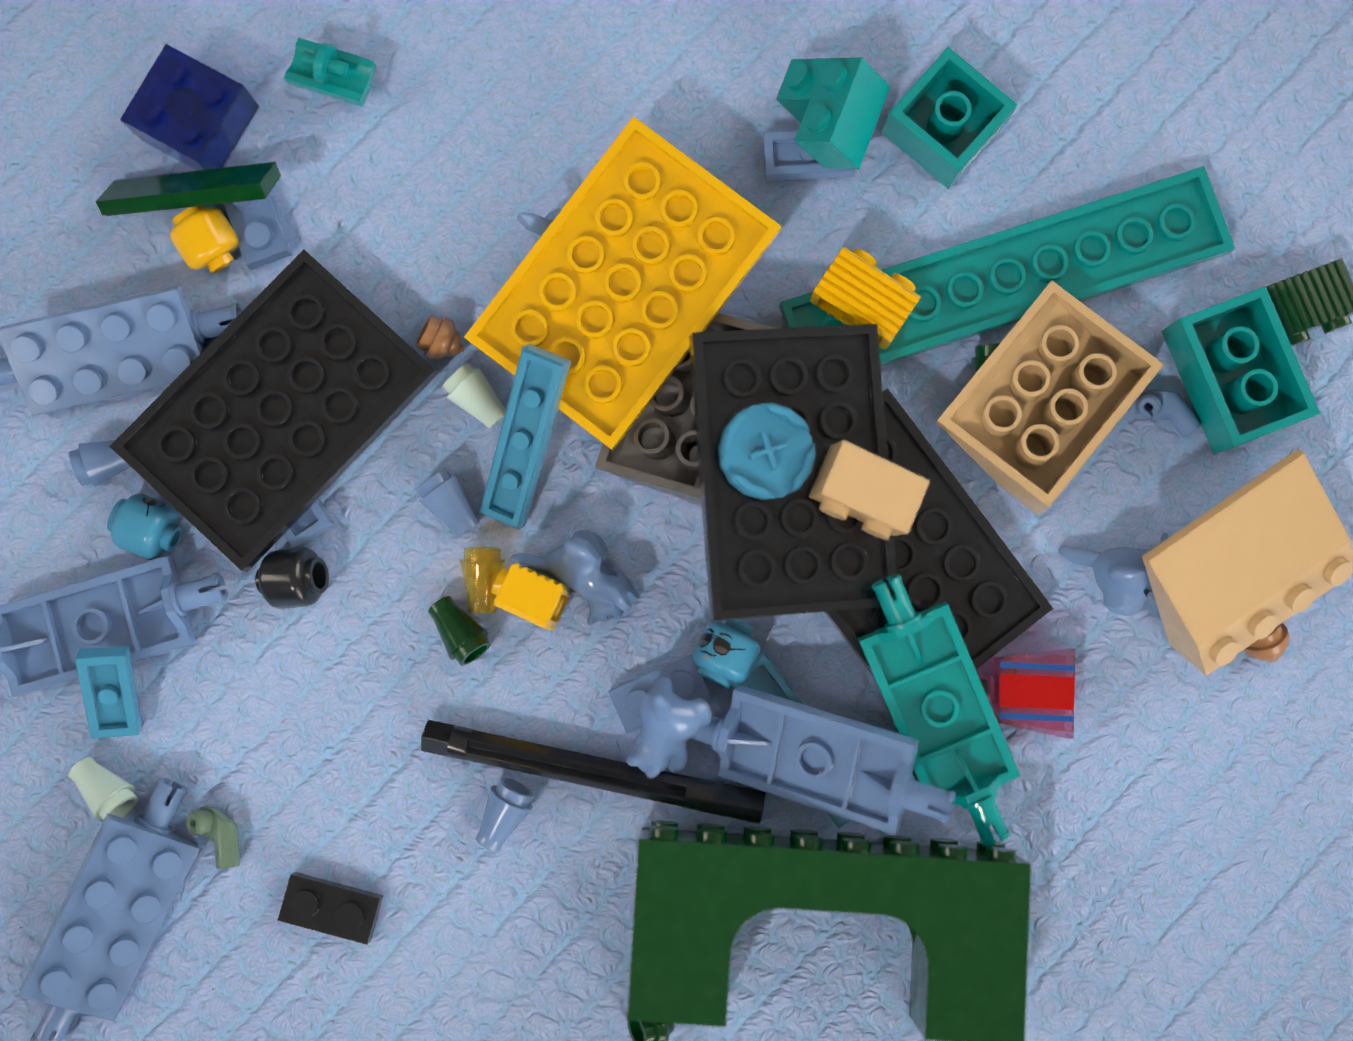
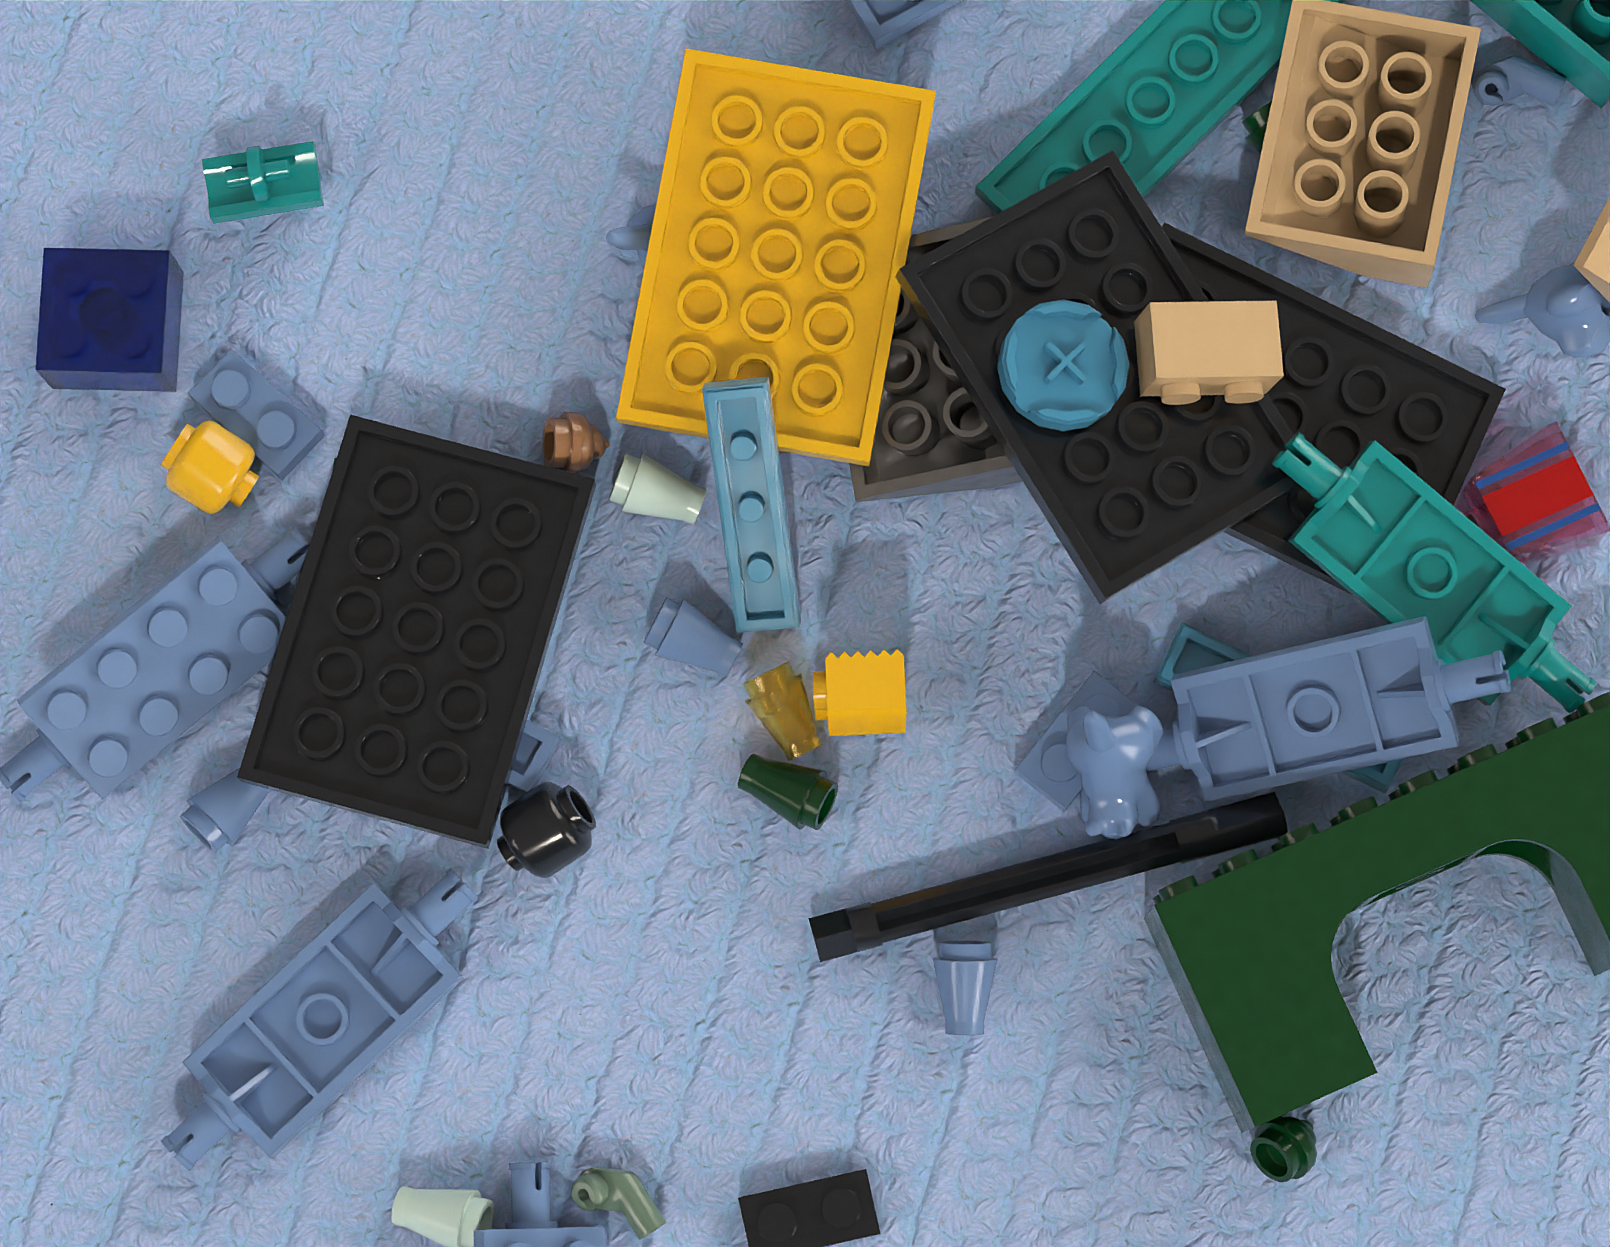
camera: 25 degrees left, 5 degrees down
(109, 692) = (393, 1085): dark azure plate -> none
(144, 526) = (323, 862): dark azure head -> none
(189, 189) = (163, 414): dark green tile -> none
(582, 567) = (901, 622): medium blue animal -> none
(726, 652) = (1136, 644): dark azure head -> none
(863, 294) = (1073, 124): yellow brick -> none

